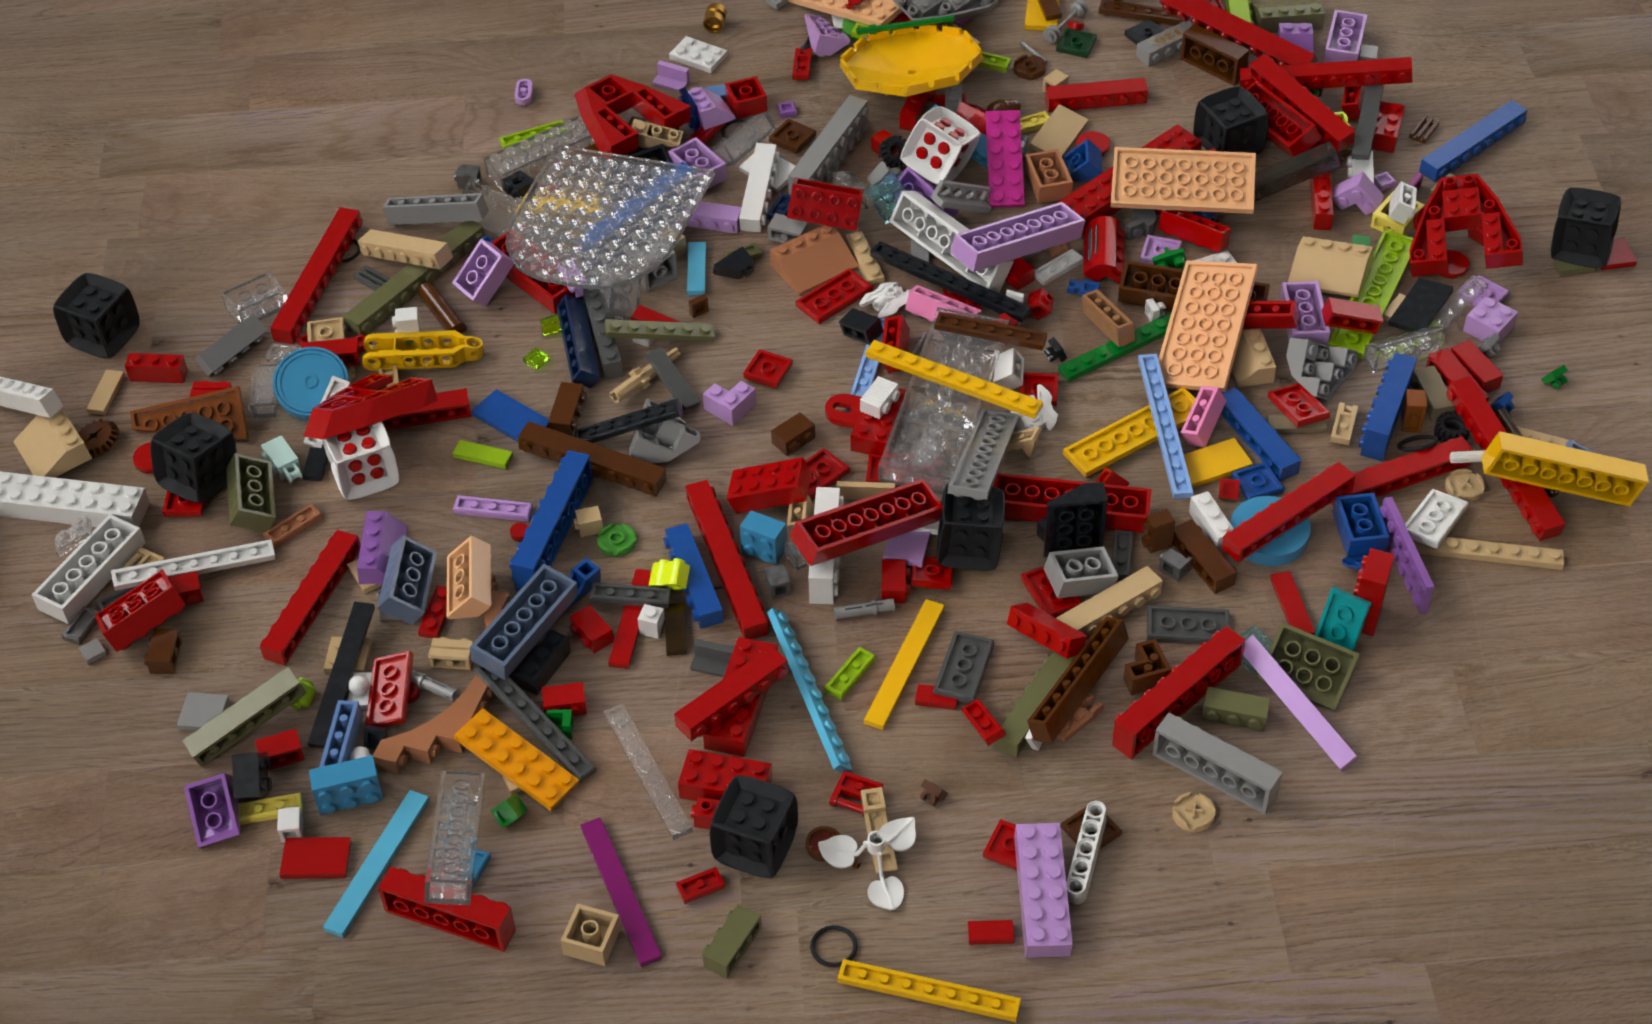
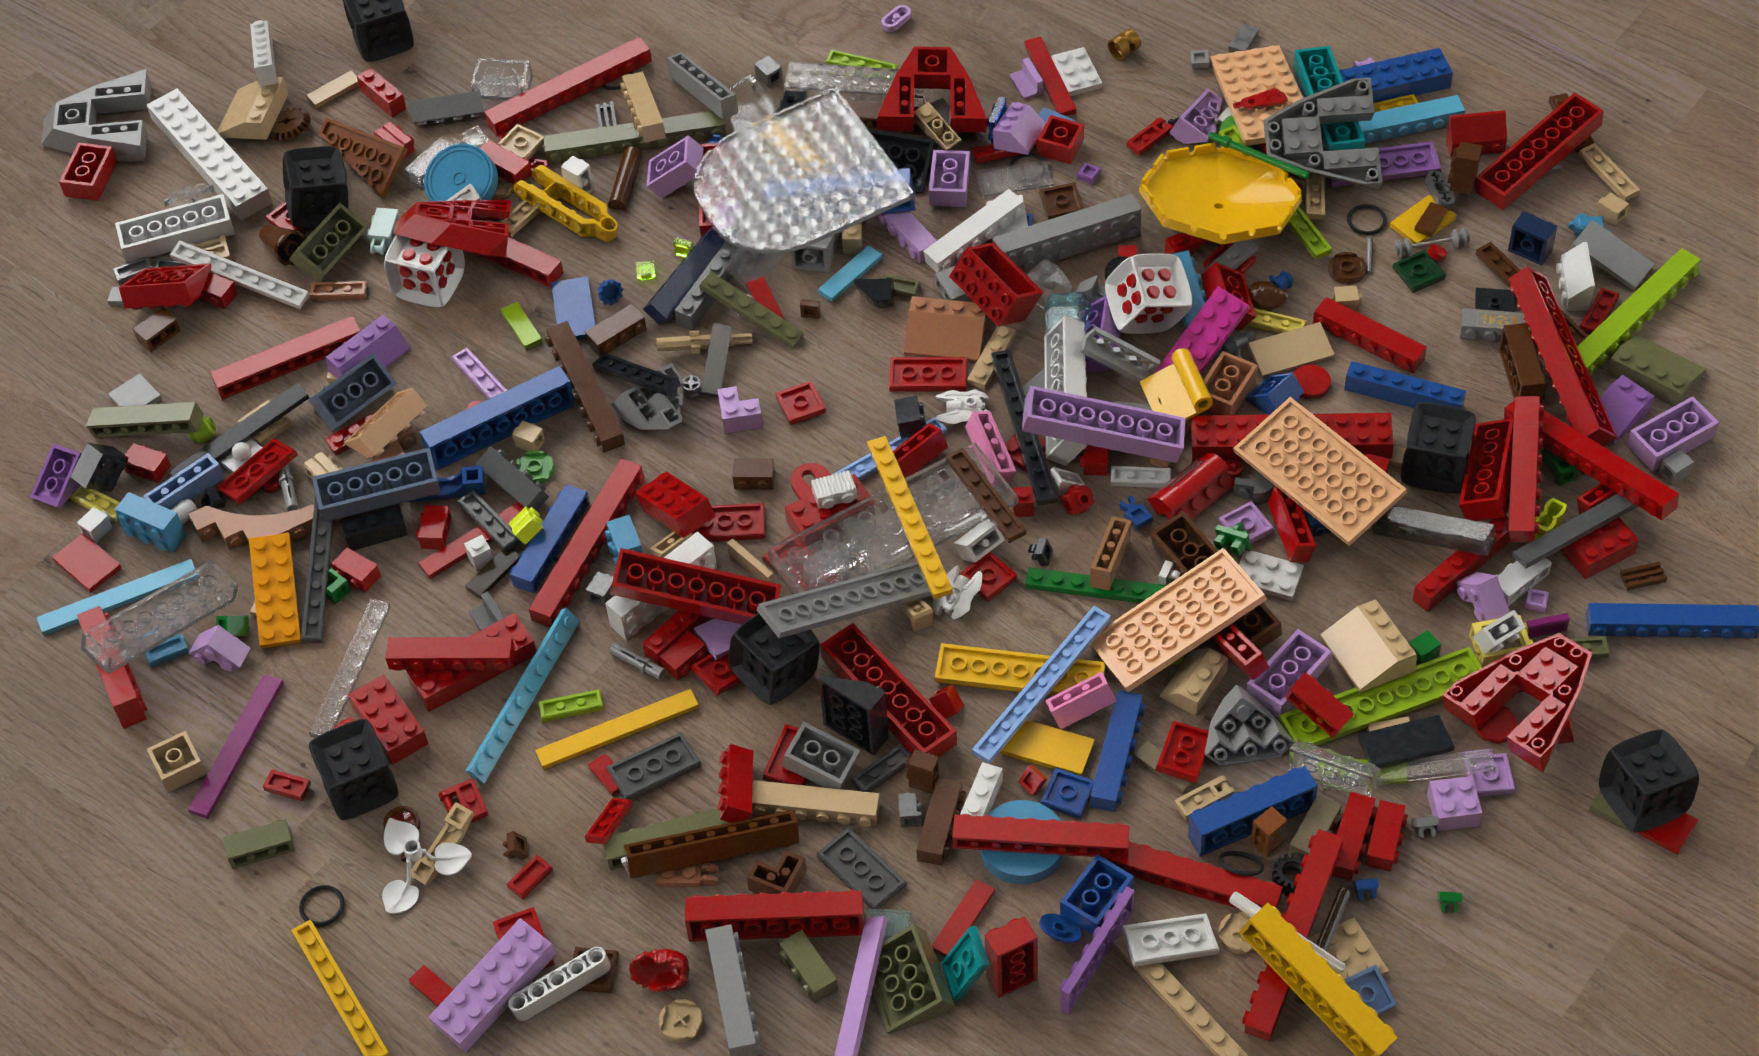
camera: 45 degrees right, 5 degrees up
(203, 519) = (281, 242): none -> reddish brown cone
(521, 828) = (219, 646): none -> lavender brick
(528, 386) = (610, 291): none -> blue piece
(616, 555) = (511, 479): none -> dark grey brick
(696, 71) = (1051, 78): none -> red tile
(870, 573) = (670, 632): none -> red brick
(966, 805) = (529, 877): none -> red tile
(1002, 93) = (1283, 280): none -> blue brick
(1005, 23) = (1366, 206): none -> black tyre
(1024, 191) = (1178, 388): none -> yellow door
(1147, 785) = (660, 970): none -> red piece
(1156, 112) = (1400, 387): none -> blue brick

